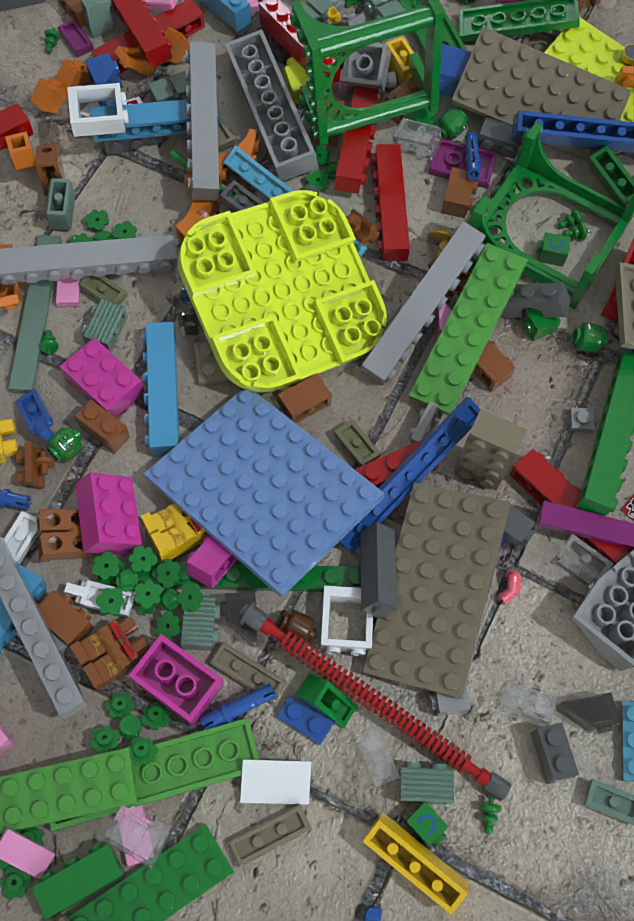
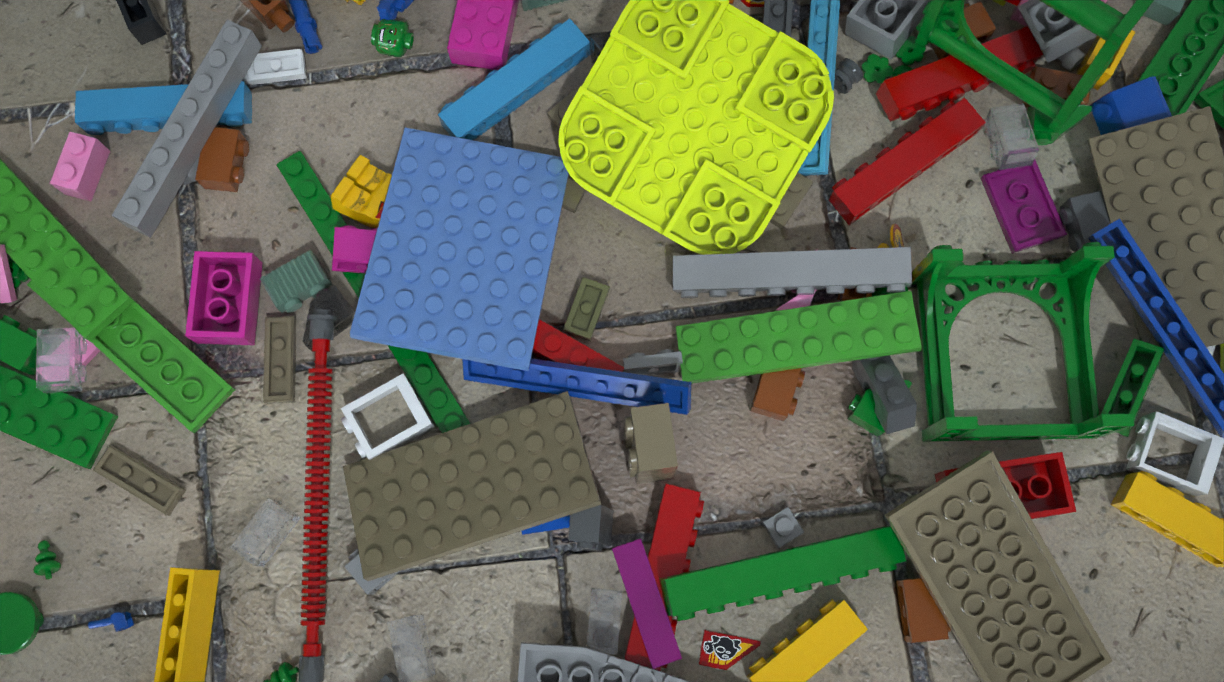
camera: 60 degrees right, 10 degrees up
(36, 466) = (353, 26): dark orange hips -> none
(59, 535) = (309, 112): dark orange hips -> none
(88, 592) = (265, 179): white hinge -> none
(102, 426) = (433, 58): dark orange brick -> none
(108, 514) = (342, 124): dark pink brick -> none
(109, 652) = (216, 221): dark orange hips -> none
(127, 580) = (290, 187): green plant -> none
(130, 727) = (157, 287): green plant -> none
(171, 599) = (299, 239): green plant -> none
(237, 707) = (228, 366): blue pin -> none
(275, 782) = (188, 452): white sticker -> none
(298, 623) = (349, 375): reddish brown head -> none
(304, 398) = (599, 225): dark orange brick -> none
(305, 719) = (267, 442): blue plate -> none
(326, 699) = (290, 449): green slope -> none
(362, 228) = (842, 148): dark orange hips -> none
(378, 570) = (449, 415): dark grey brick -> none
(426, 784) = (269, 596): sand green brick -> none
(427, 825) = (230, 621): green brick -> none
(452, 123) = (1065, 161): green head -> none
(458, 193) = (976, 224): dark orange brick -> none
(472, 164) = (1024, 213): blue pin -> none
(513, 586) = (534, 564): coral arm -> none
(553, 249) = (980, 371): green brick -> none
(570, 219) = (1037, 368): green hair -> none
(577, 232) = (1024, 383): green hair -> none
(589, 337) = (890, 477): green head -> none

